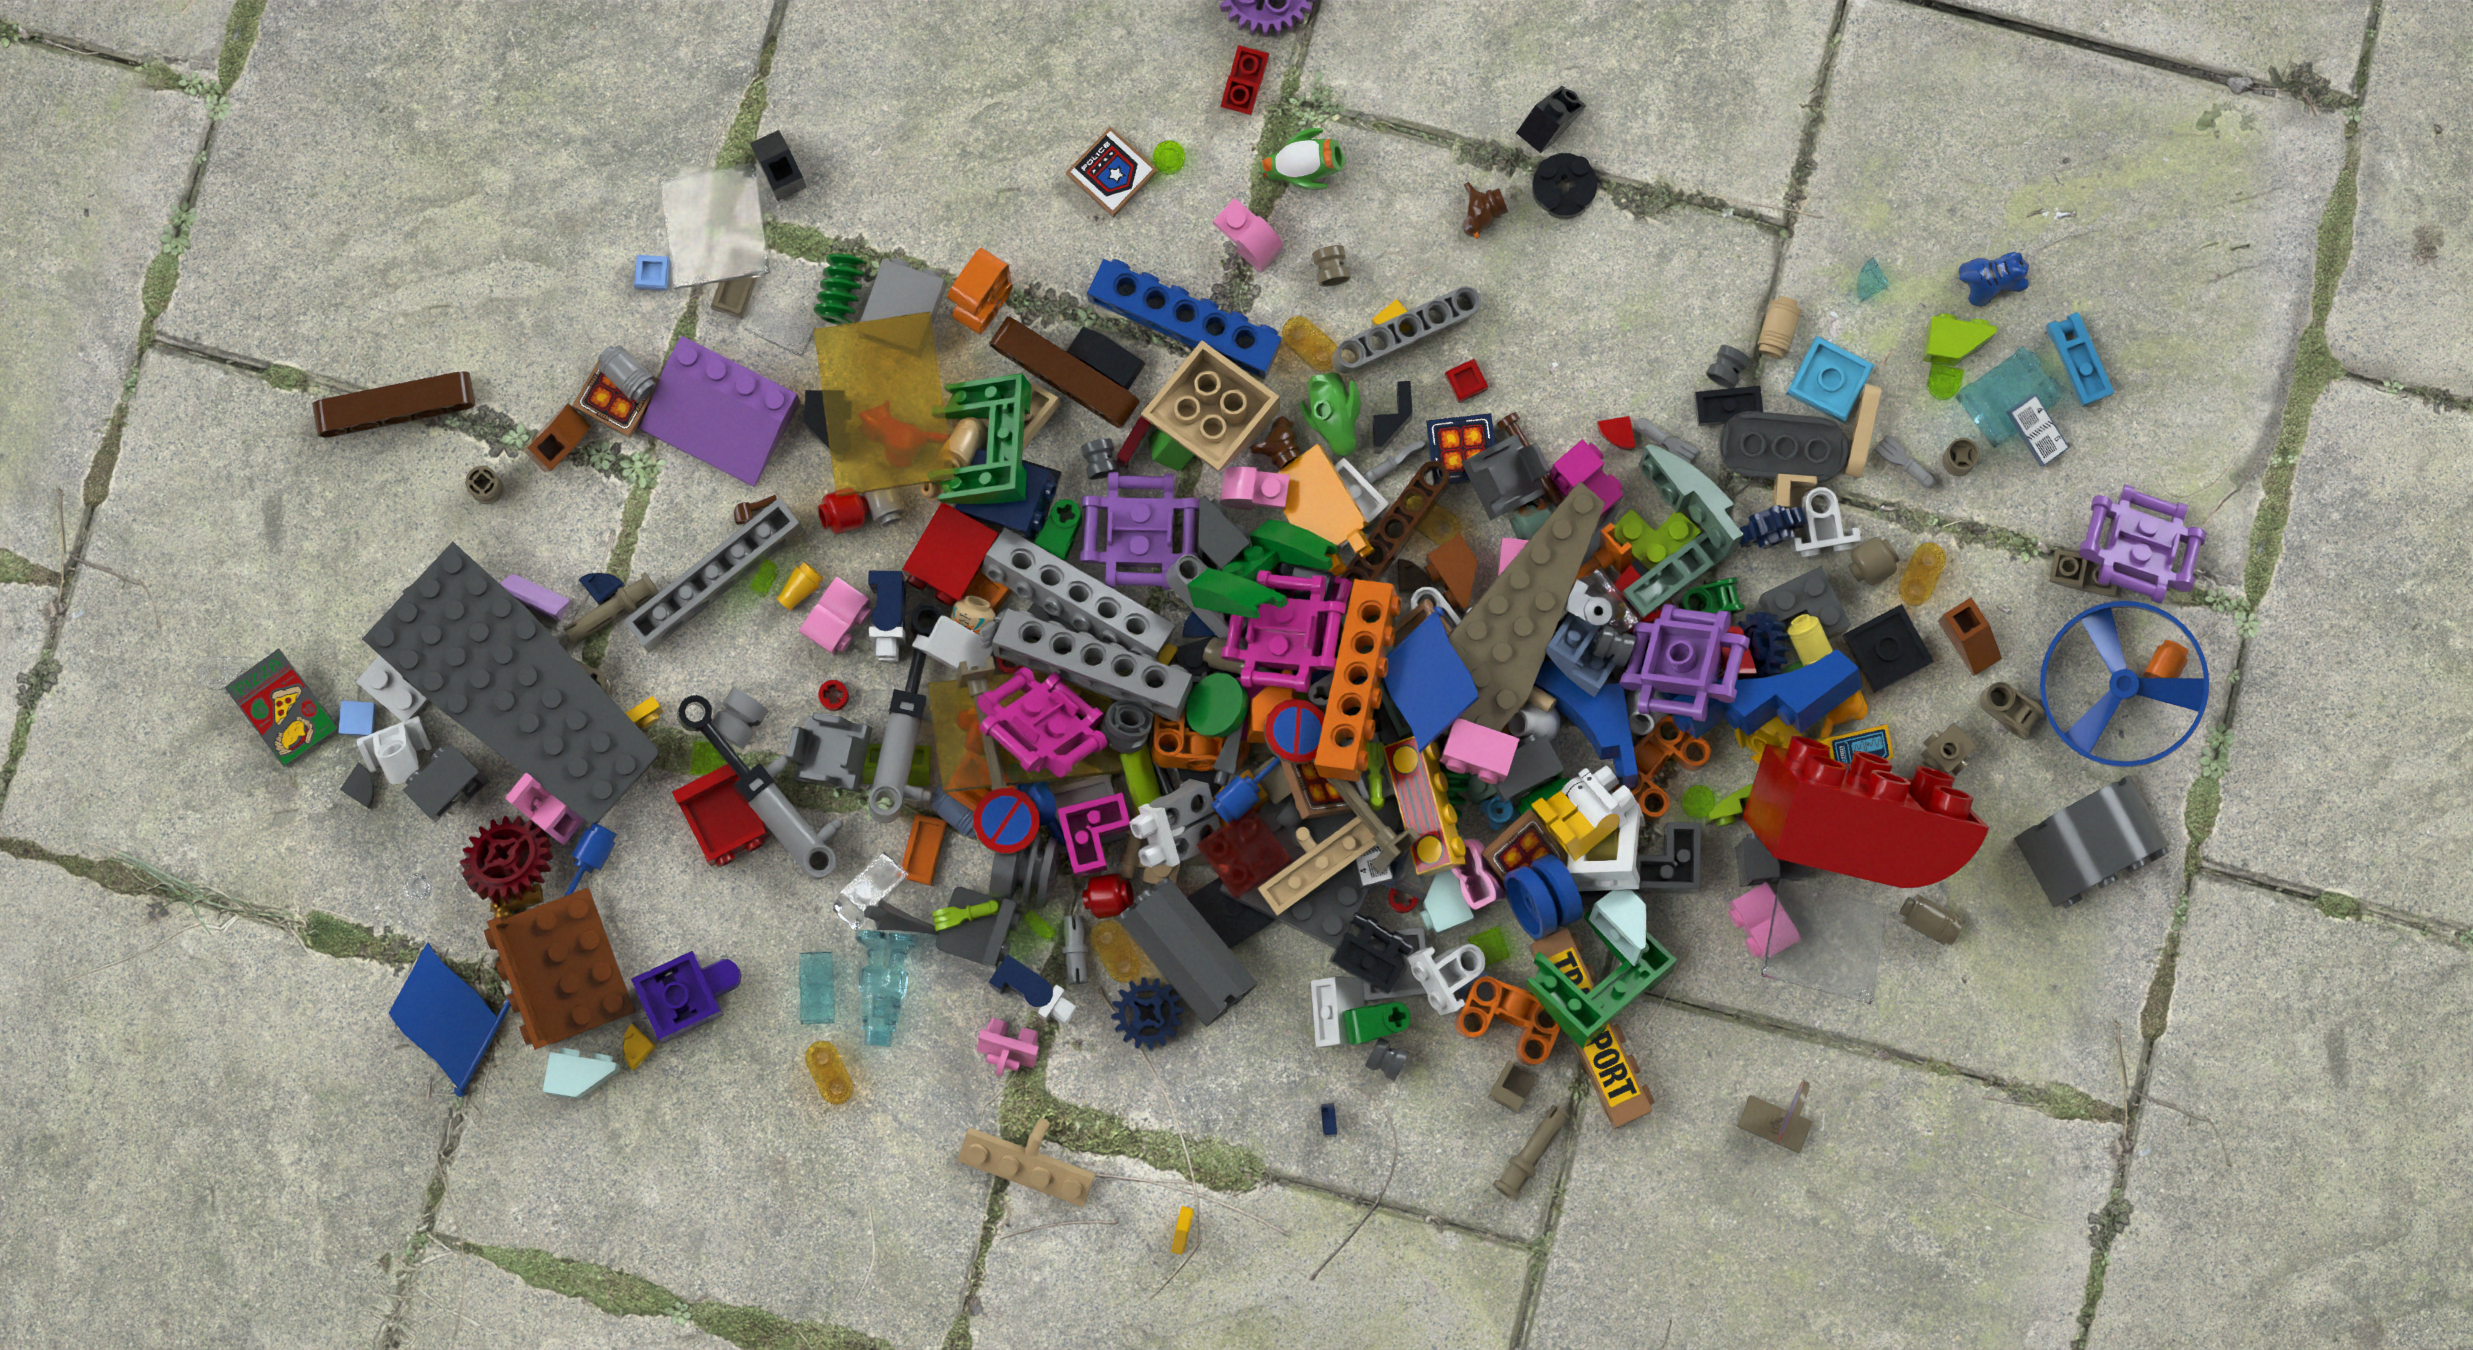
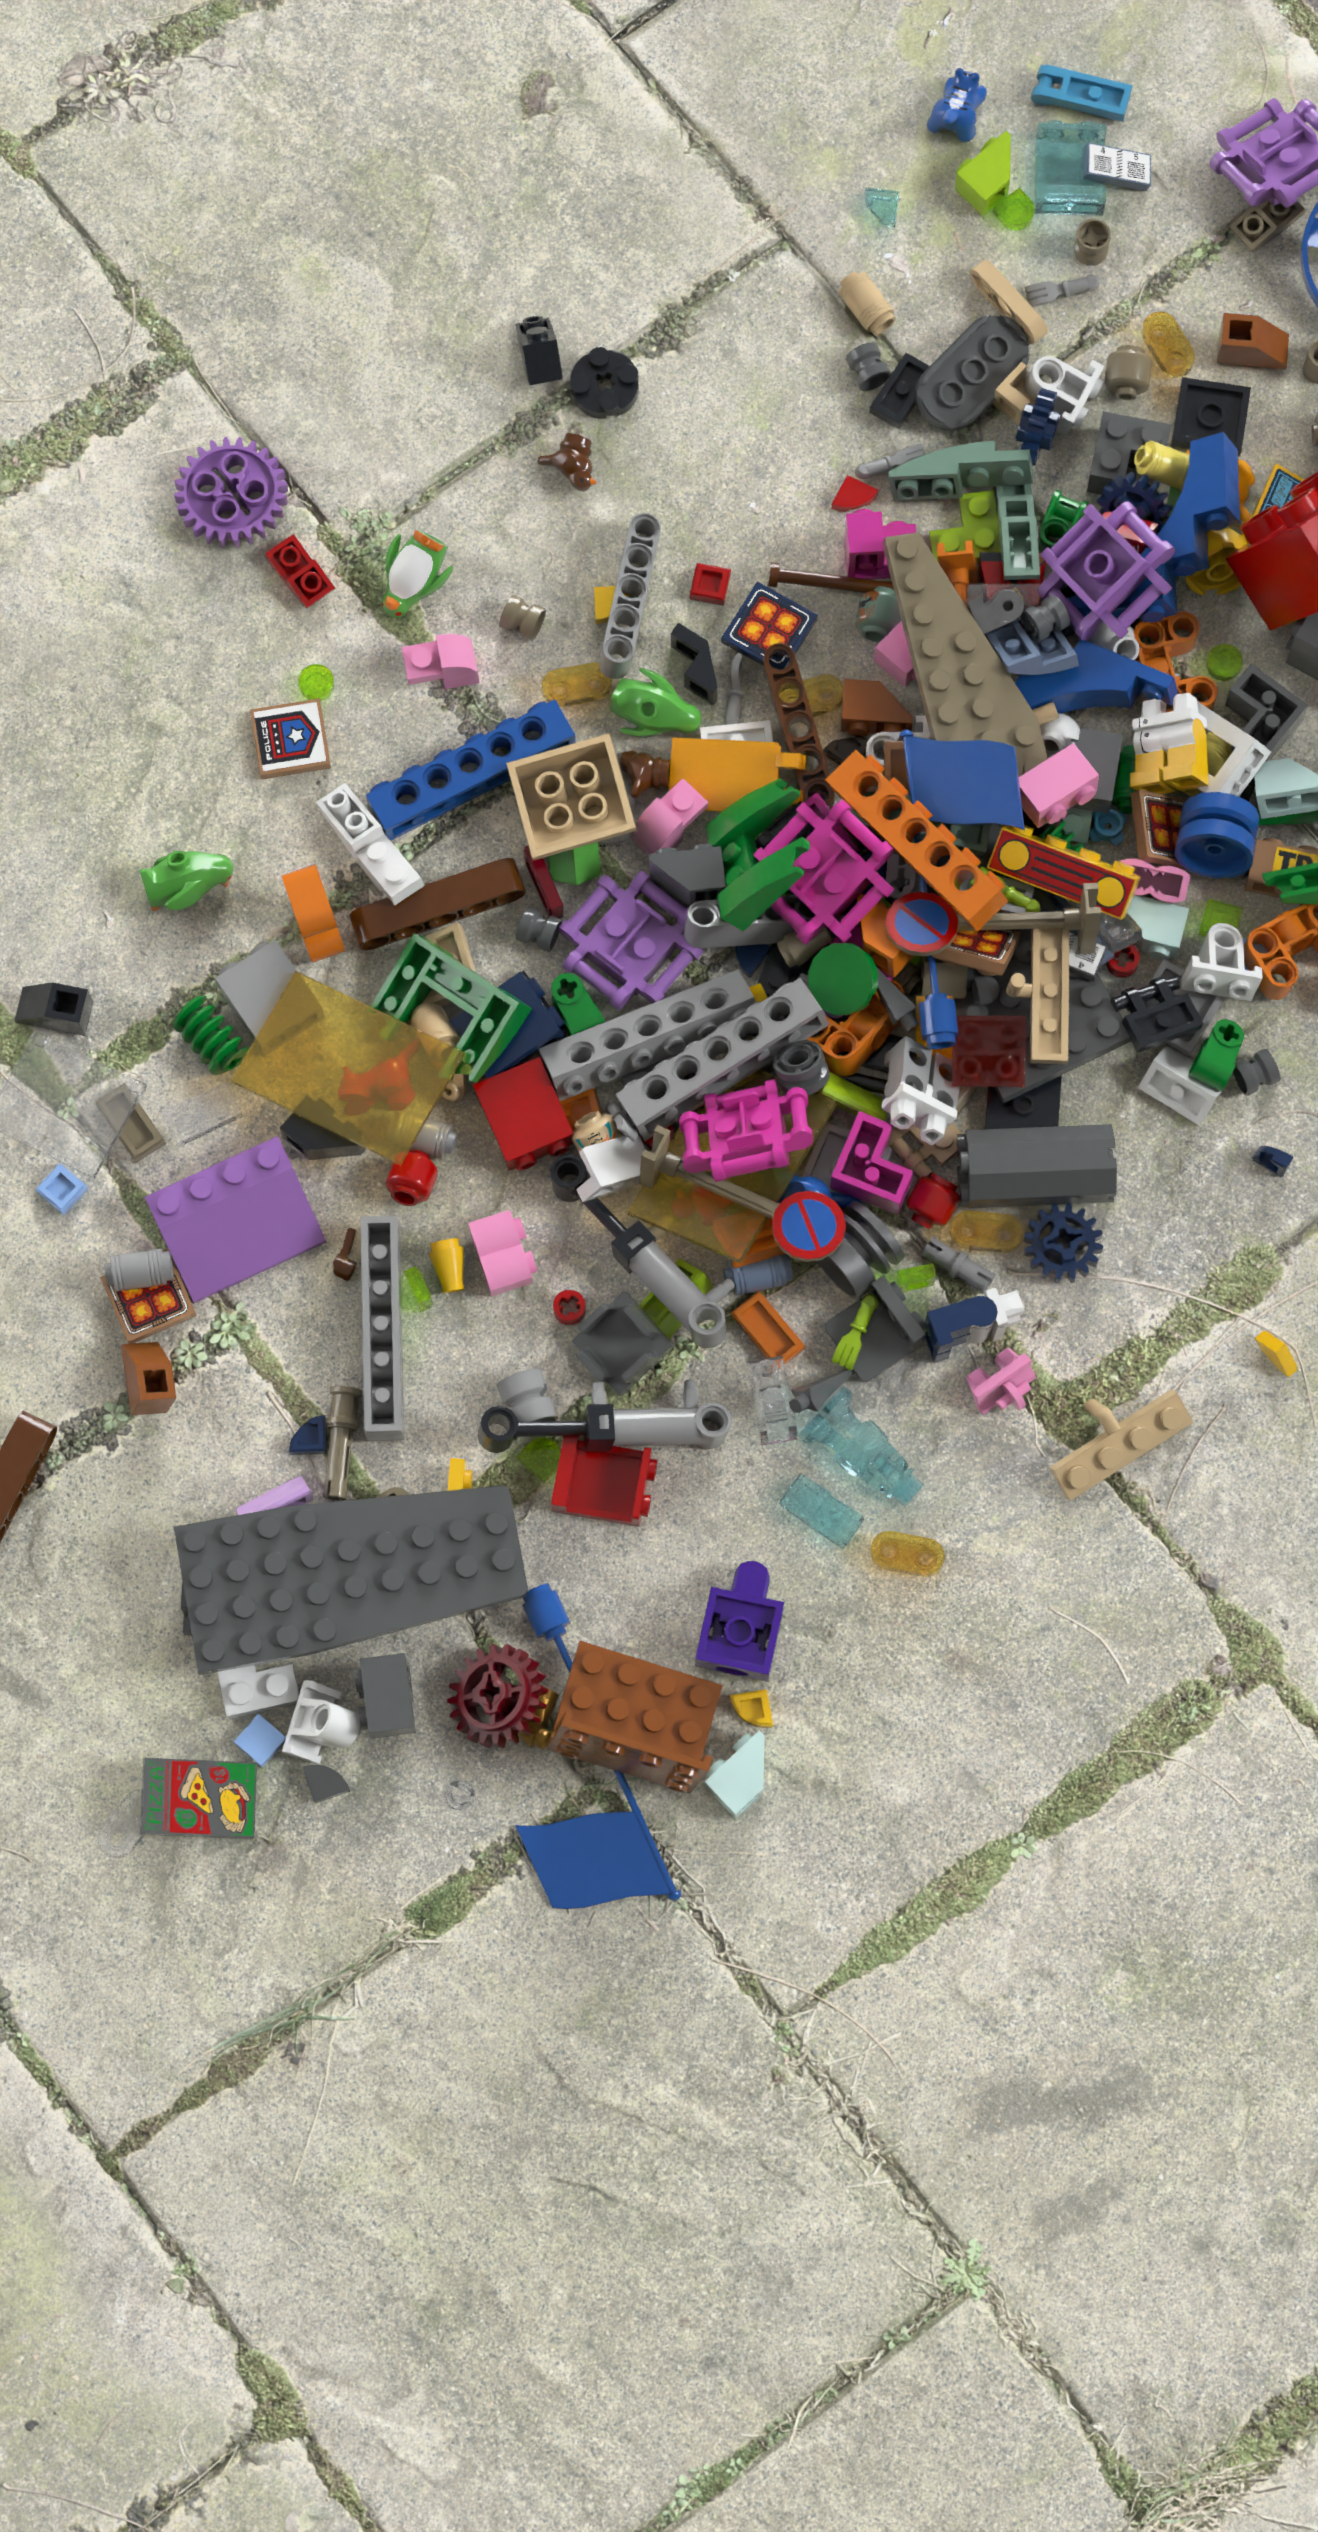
camera: 50 degrees left, 5 degrees down
(488, 489) = (142, 1476): dark tan wheel -> none
(544, 809) = (478, 1629): bright pink brick -> none
(888, 614) = (538, 1201): dark blue hips -> none
(943, 179) = (184, 878): none -> bright green animal
(1070, 290) = (369, 844): none -> white slope
(1106, 357) = (453, 856): black slope -> none
(1507, 475) = (822, 604): dark grey panel -> none
(1729, 808) = (1250, 635): lime slope -> none
(1830, 379) = (942, 297): medium azure tile -> none

